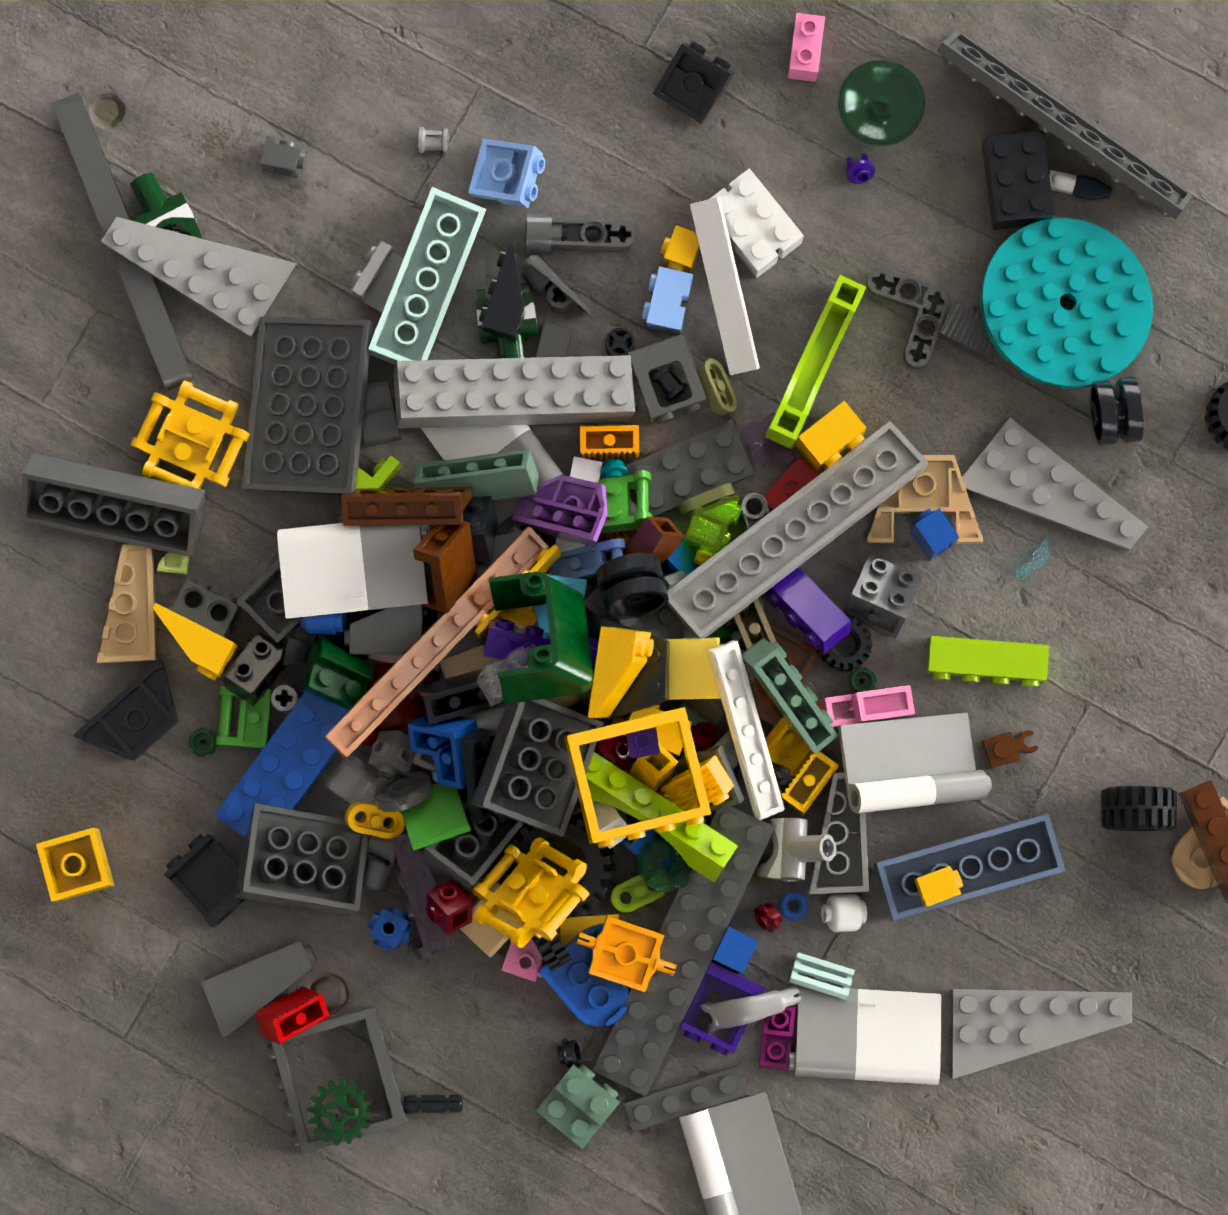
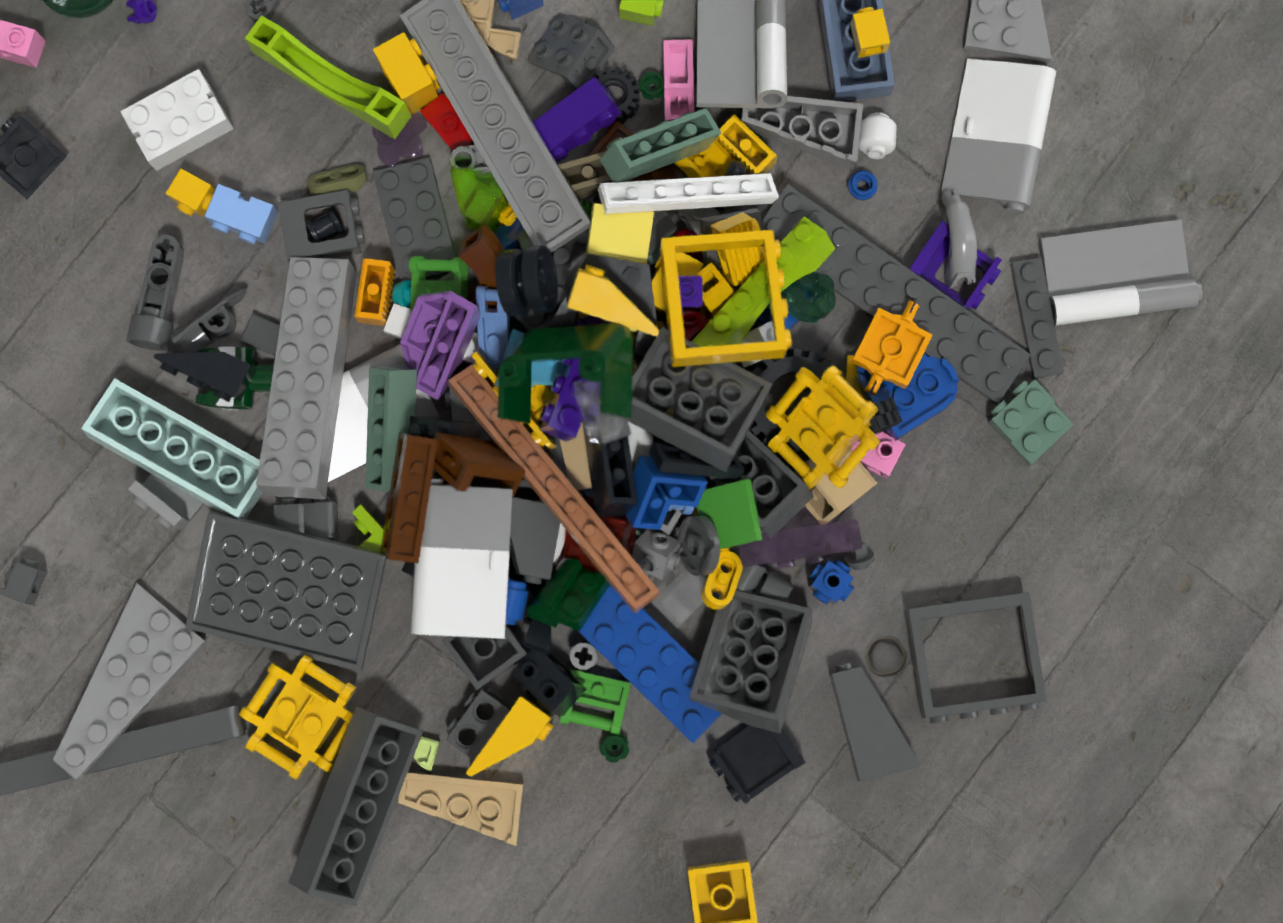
camera: 80 degrees left, 0 degrees up
(135, 716) = (578, 814): black wing -> none
(162, 212) = (60, 706): dark green connector -> none
(292, 1015) = (906, 692): red brick -> none
(339, 1125) = (1008, 670): dark green gear -> none
(433, 140) = (34, 425): light grey bush -> none
(433, 1103) = (1010, 565): black axle -> none
(449, 907) = (822, 514): dark red brick -> none
(507, 172) = (81, 355): light blue plate -> none
(569, 1052) = (977, 423): black plate -> none
(619, 339) = (272, 265): black wheel -> none
(640, 894) = (830, 332): lime plate -> none
(705, 499) = (452, 218): olive plate -> none
(724, 286) = (235, 154): white tile -> none
(735, 950) = (901, 242): blue piece -> none
(768, 917) = (871, 210): dark red plate -> none
(777, 1040) = (994, 221): magenta slope -> none
(794, 849) = (810, 169): light grey connector -> none
(822, 971) = (931, 169): light aqua tile -> none

